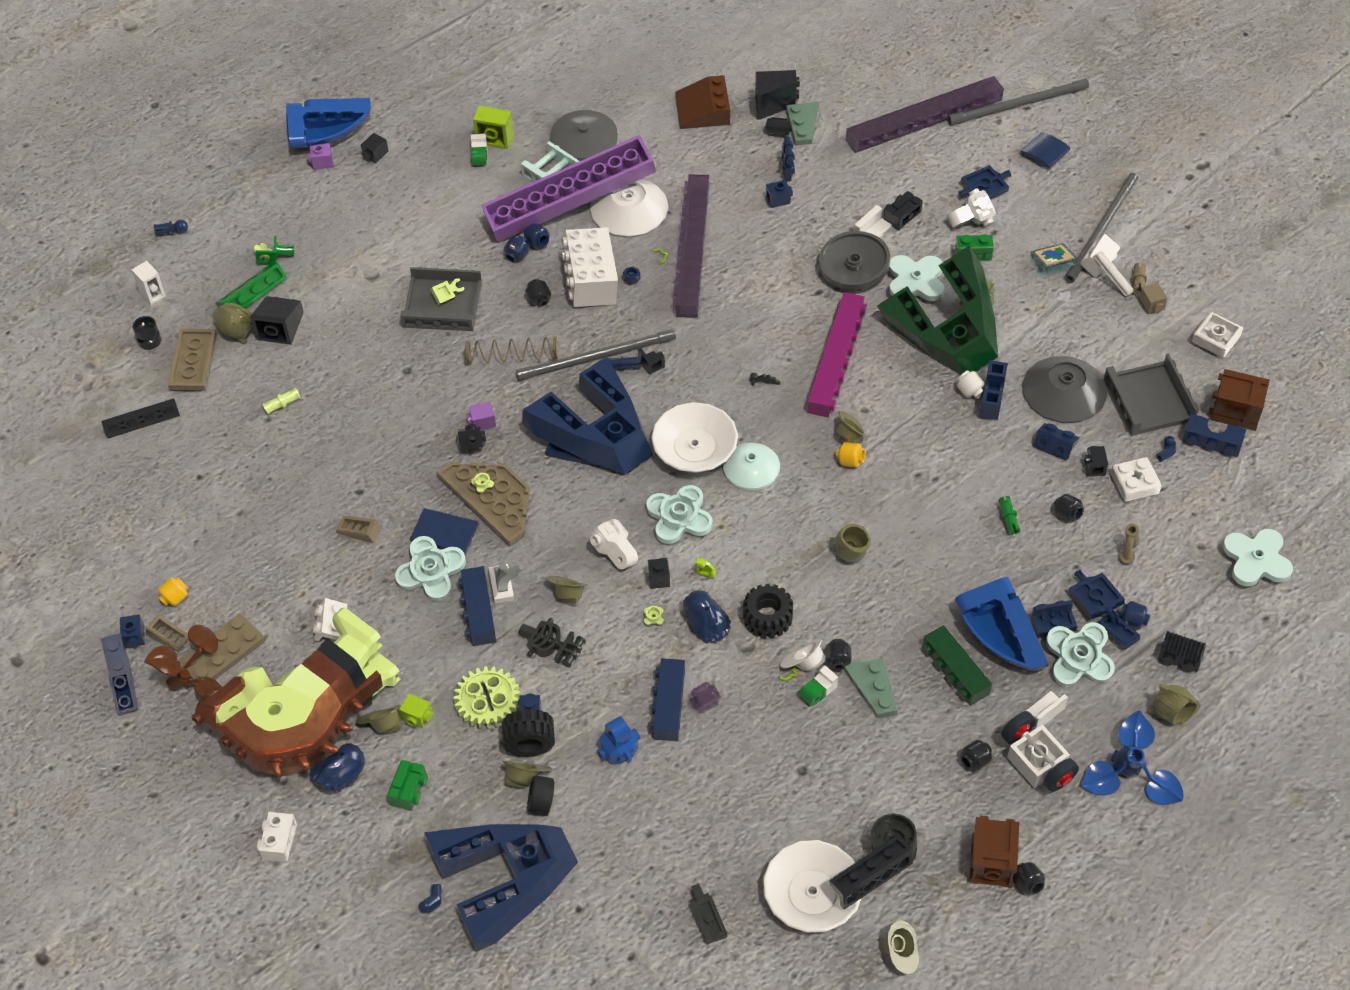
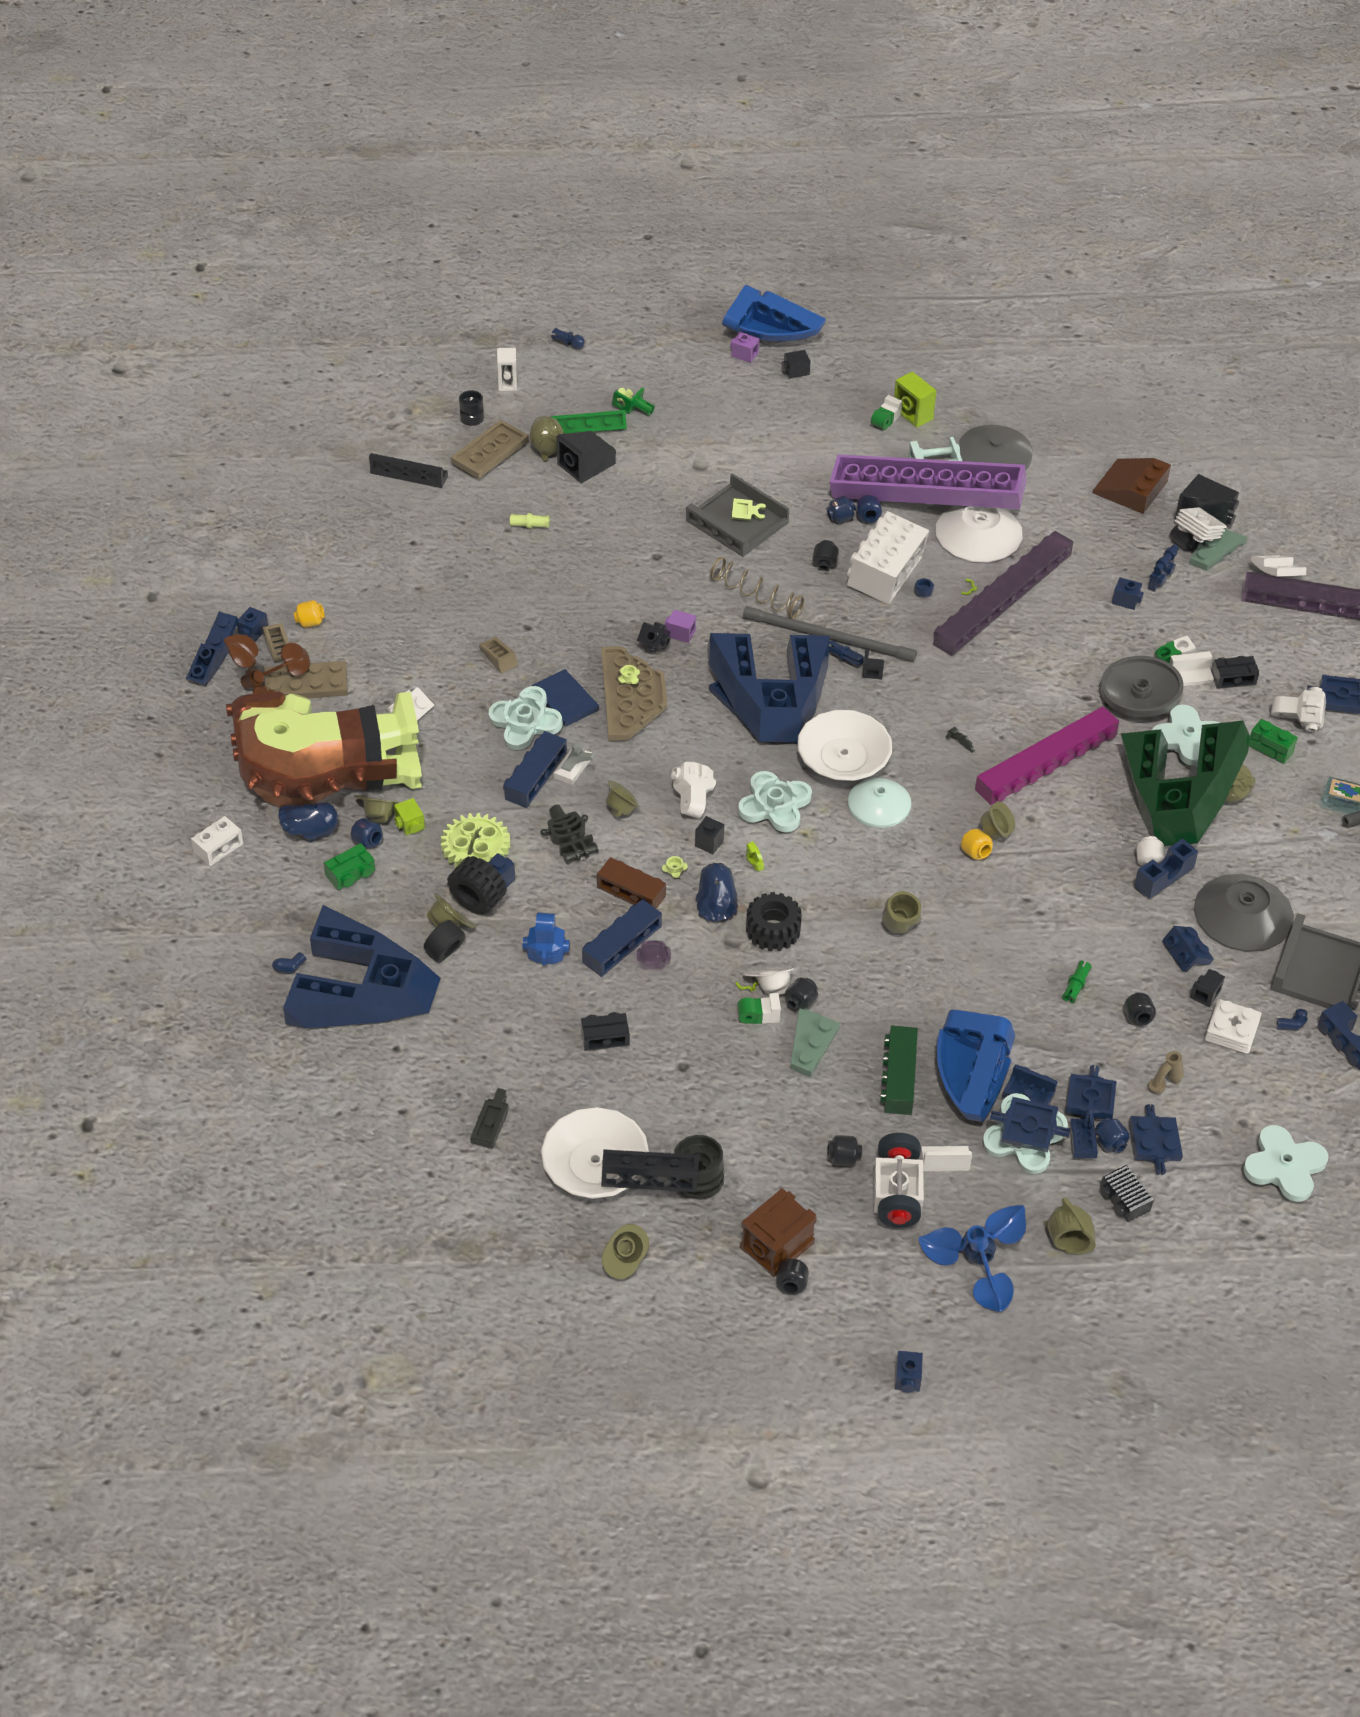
camera: 35 degrees right, 5 degrees down
(394, 747) = (366, 832): none -> dark blue head
(636, 651) = (630, 883): none -> reddish brown brick
(725, 783) = (605, 1031): none -> black brick
(787, 110) = (1200, 524): none -> white brick
(850, 218) = (1176, 647): none -> leg
(860, 111) = (1278, 565): none -> white slope
(1087, 646) = (1030, 1124): none -> dark blue plate
(1161, 597) = (1155, 1138): none -> dark blue plate
(1167, 891) = (908, 1371): none -> dark blue brick

